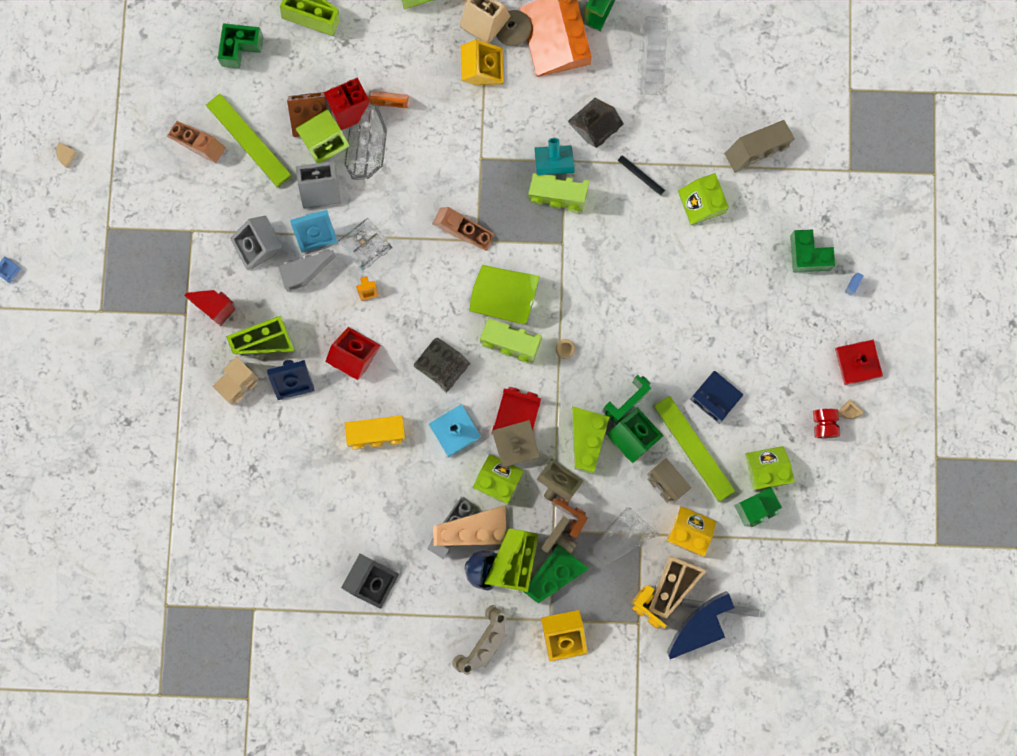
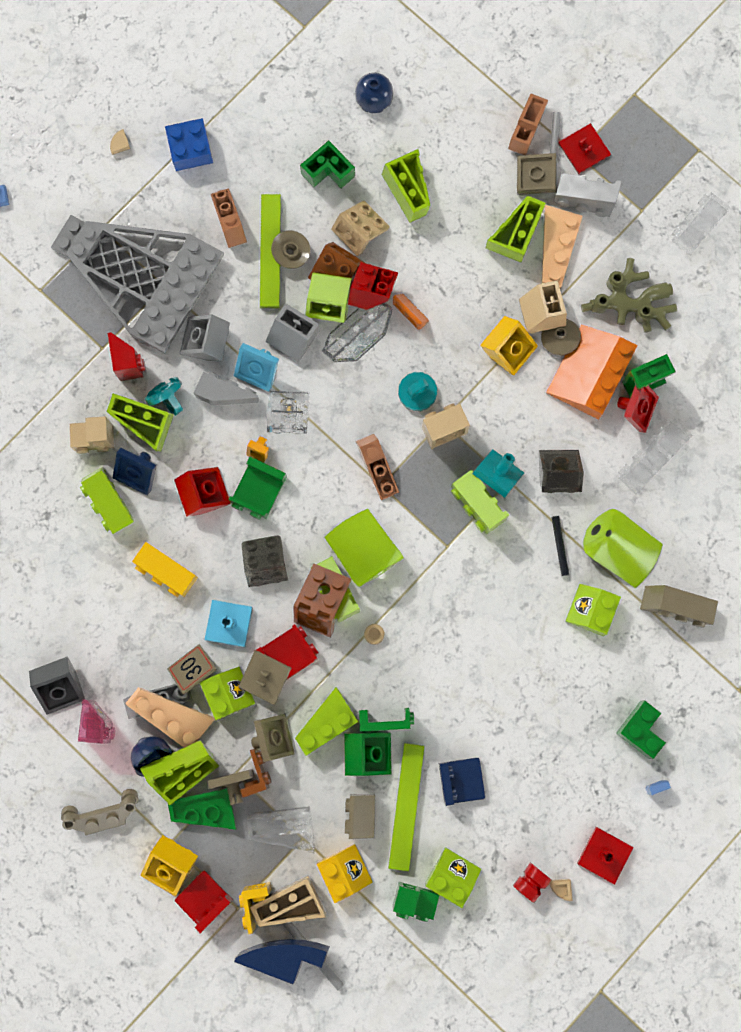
camera: 40 degrees right, 0 degrees up
(119, 112) = (189, 144): none -> blue brick
(206, 226) = (174, 294): none -> light grey wing
(263, 118) = (294, 241): none -> dark tan dish
(265, 306) = (165, 393): none -> teal tile
(288, 418) = (106, 501): none -> lime wedge
(299, 69) = (359, 226): none -> tan bracket
(391, 317) = (258, 489): none -> green panel
(424, 583) = (95, 724): none -> clear pink slope
(445, 151) = (417, 391): none -> teal tile
(457, 484) = (191, 669): none -> dark tan piece
(487, 158) = (445, 425): none -> tan brick
(509, 364) = (319, 610): none -> dark orange bracket
(610, 638) = (203, 900): none -> red bracket
(612, 31) = (639, 407): none -> red tile
(692, 138) = (627, 551): none -> lime piece

